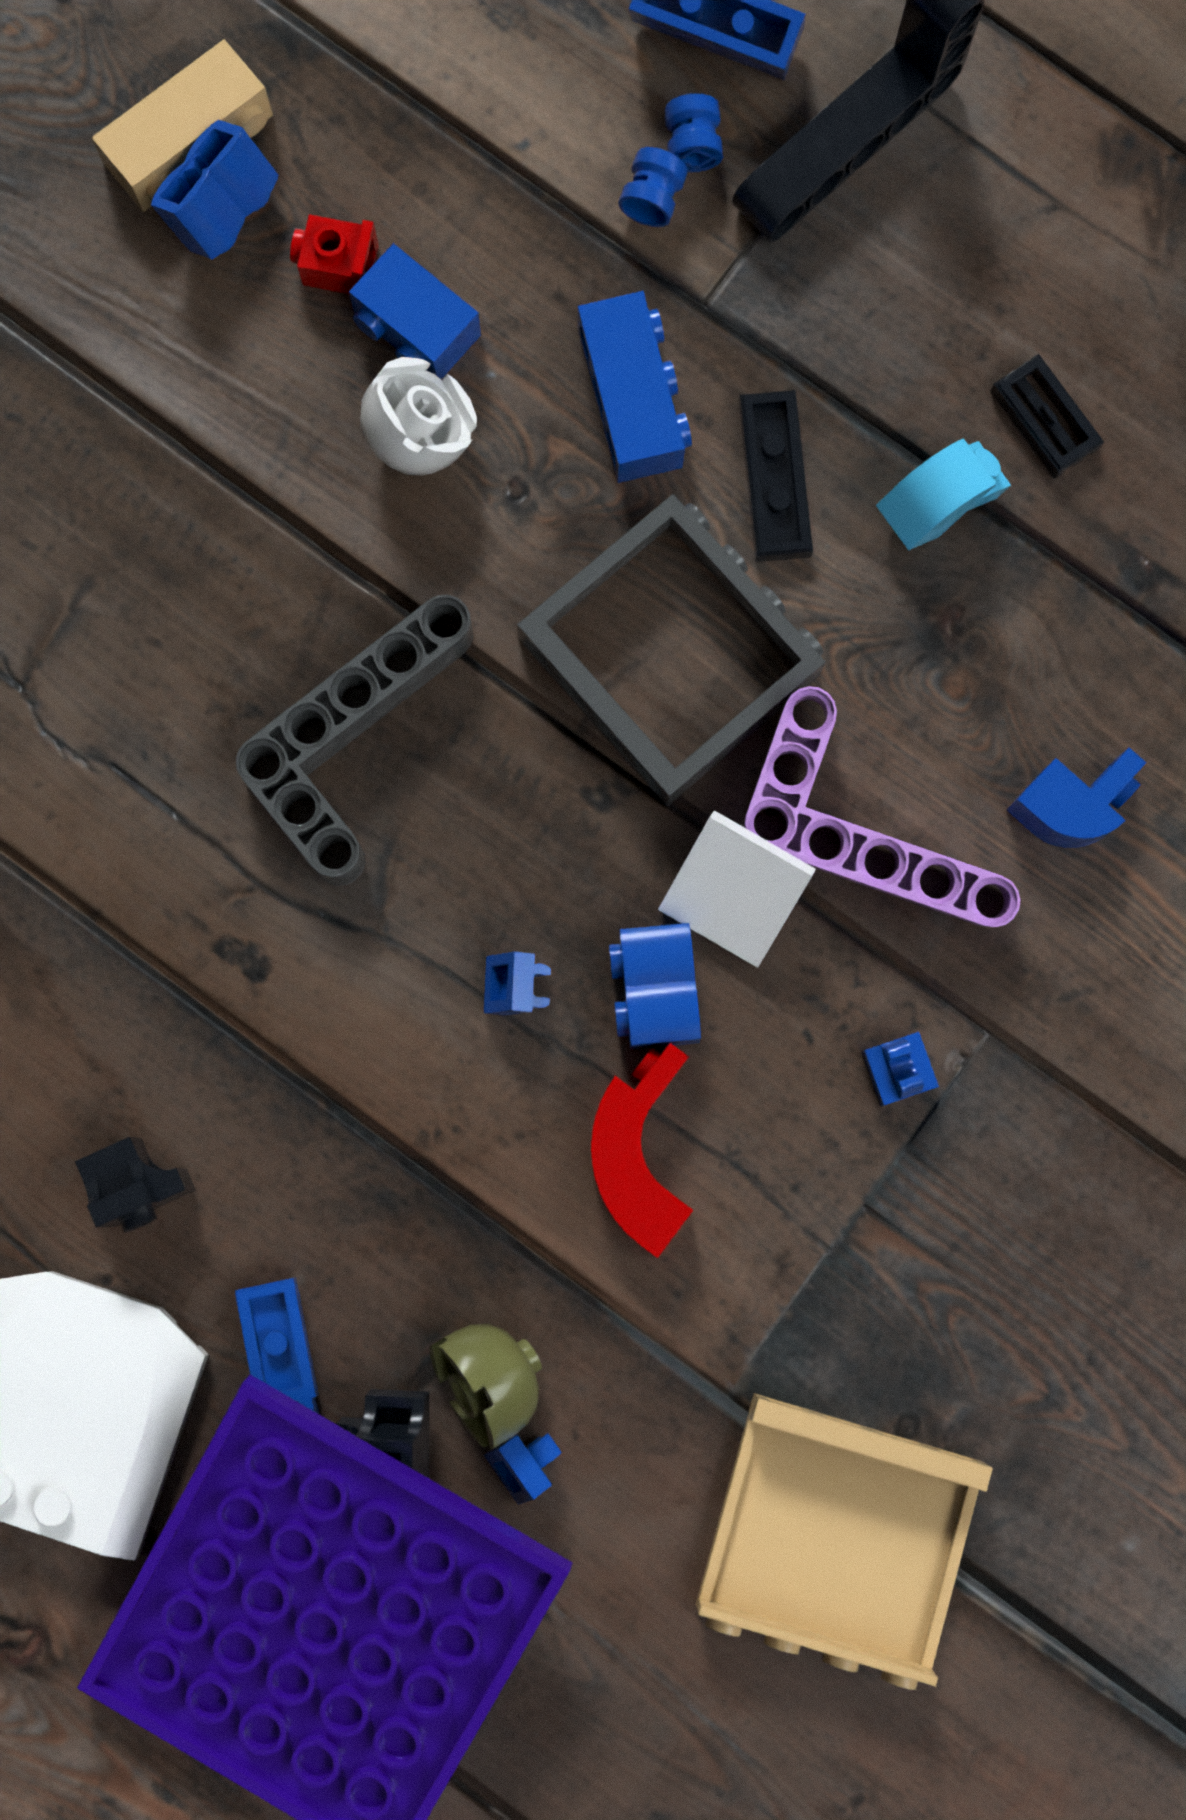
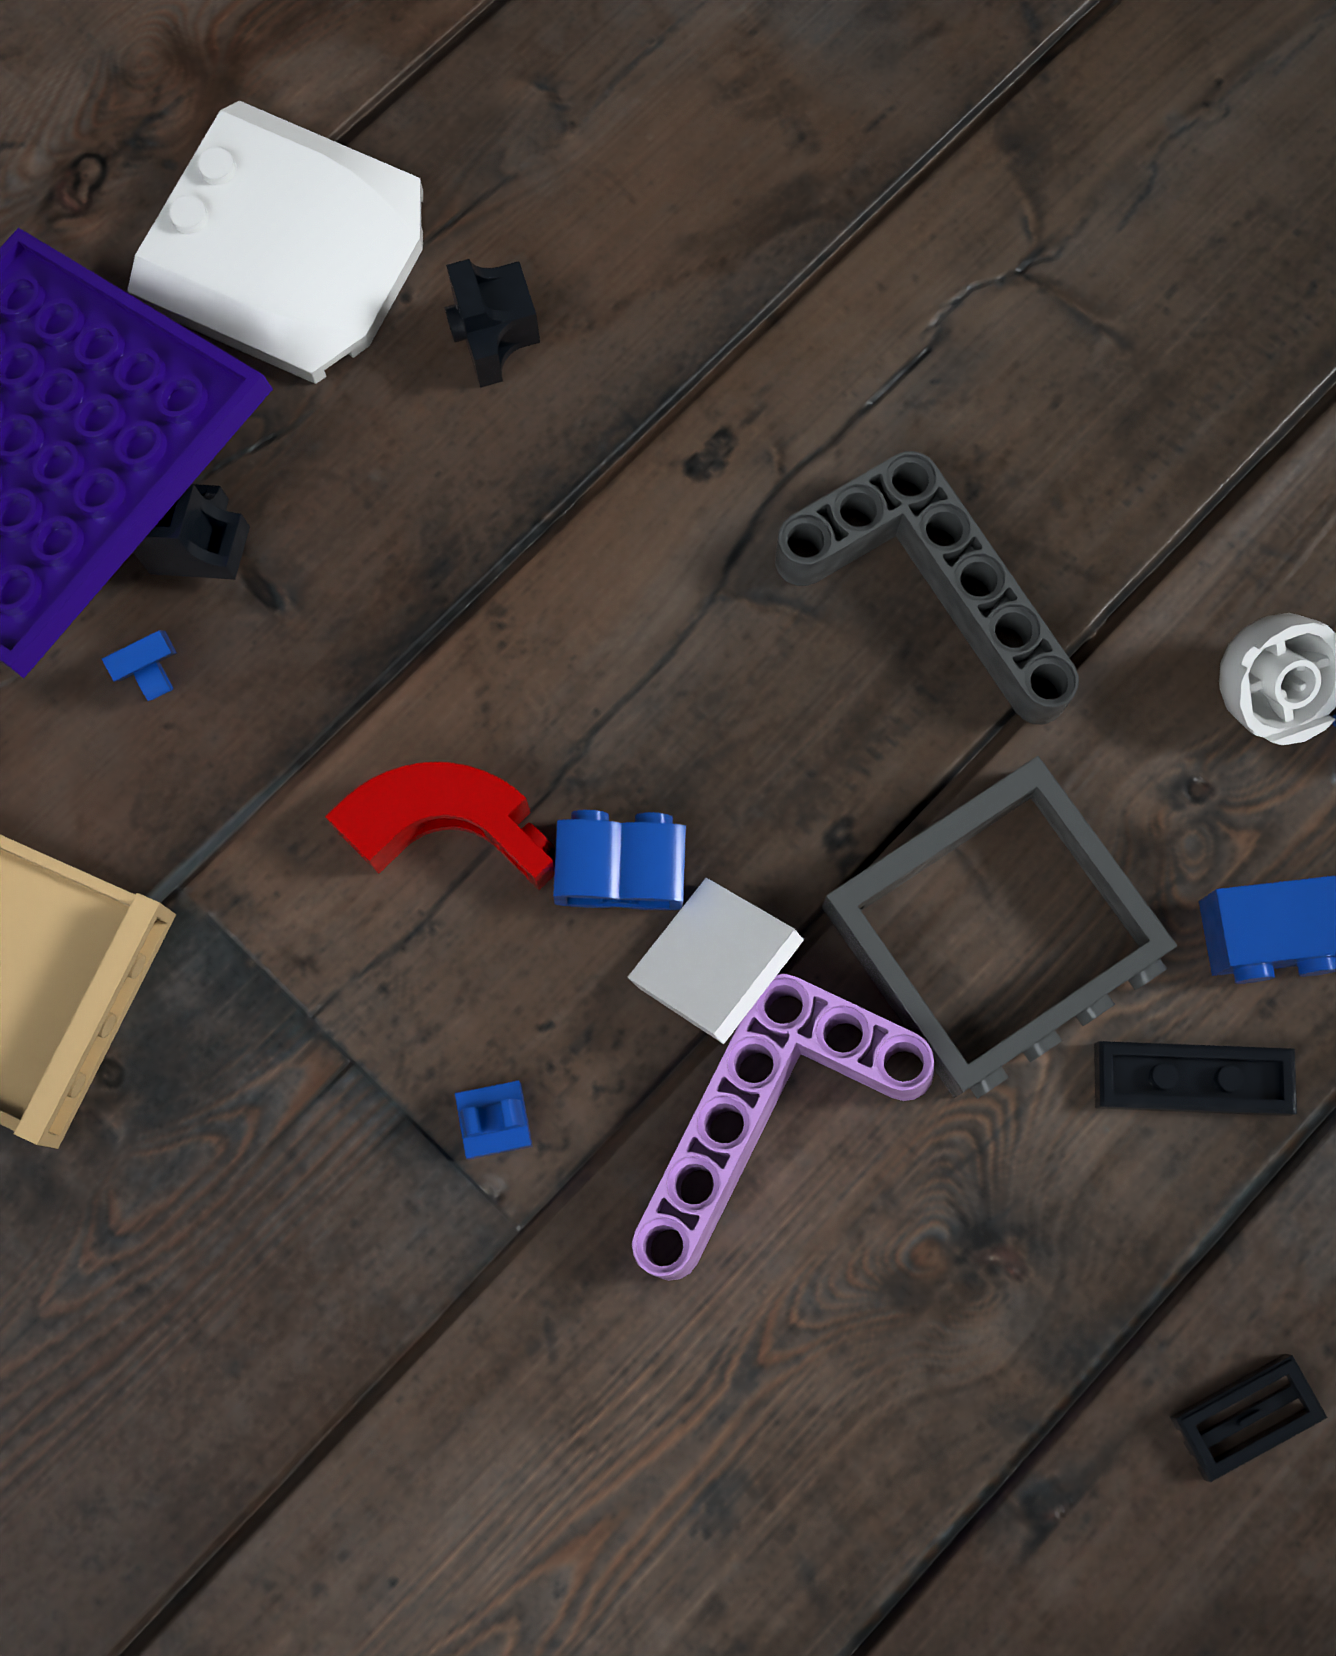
camera: 100 degrees right, 5 degrees down
(278, 1339) = (299, 444): blue hinge -> none
(489, 1379) = (232, 635): olive cylinder -> none
(511, 983) = (642, 709): blue tile -> none
(942, 492) = (1161, 1267): medium azure brick -> none
(1070, 813) = (755, 1363): blue brick -> none

